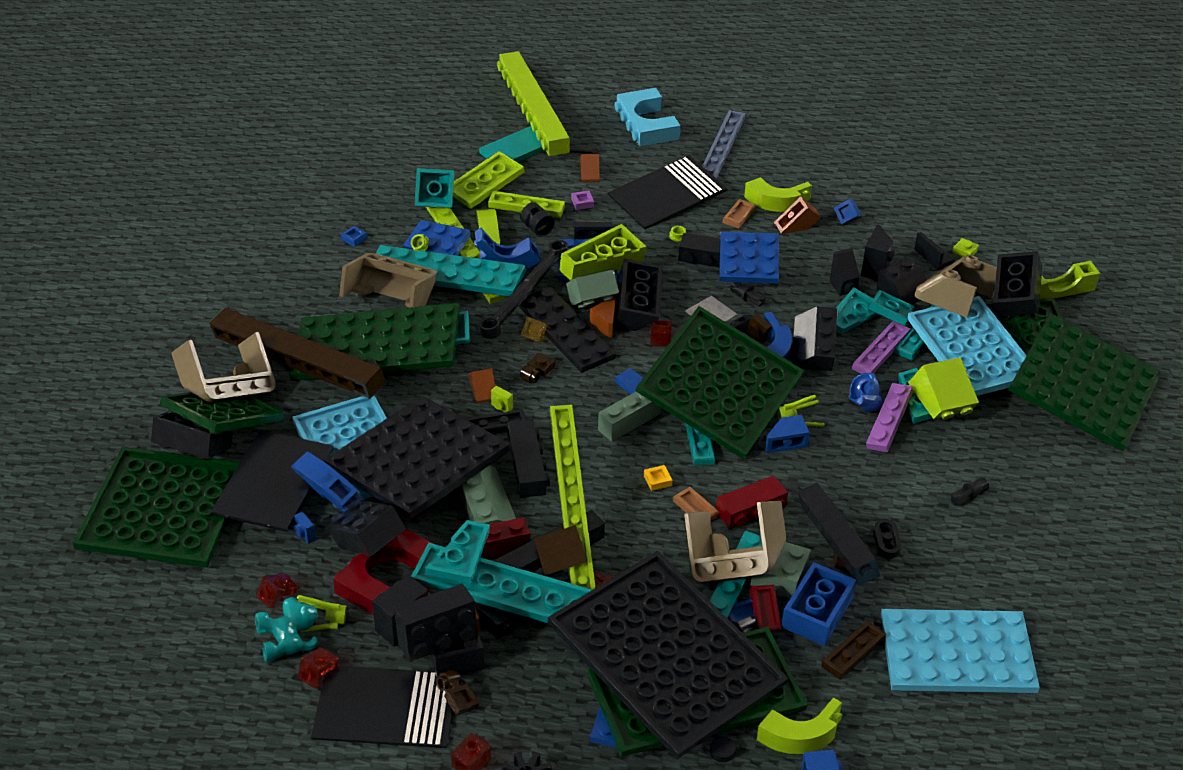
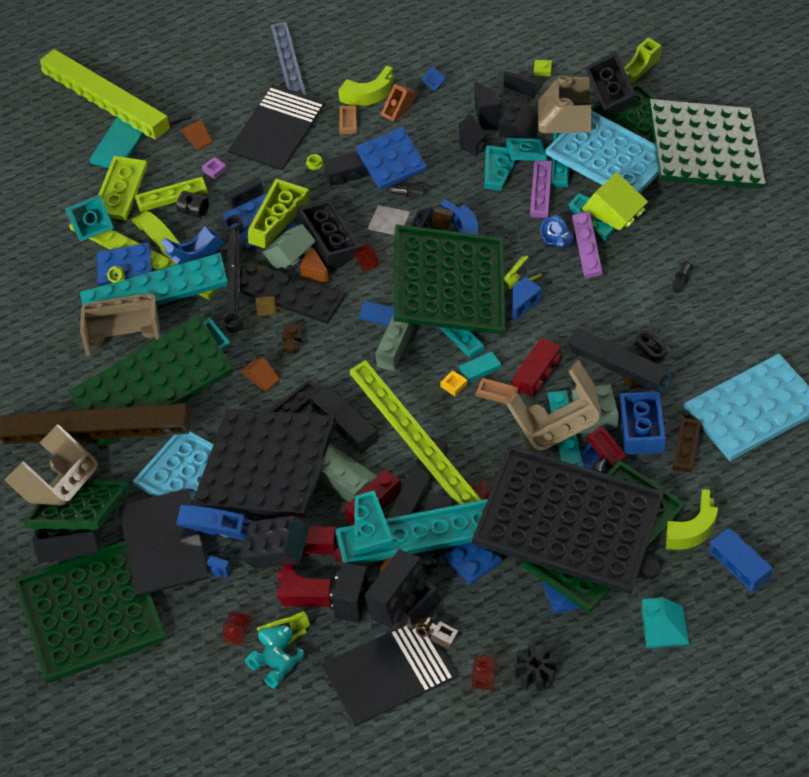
camera: 25 degrees left, 10 degrees up
(315, 665) = (317, 670): clear red bracket -> none
(354, 236) = (47, 294): blue tile -> none
(501, 399) = (287, 379): lime plate -> none
(546, 648) = (472, 561): none -> blue plate
(560, 550) = (434, 481): dark brown sticker -> none
(645, 130) = (215, 77): medium azure arch -> none
(695, 476) = (479, 367): none -> teal tile
(815, 339) = (490, 205): black slope -> none

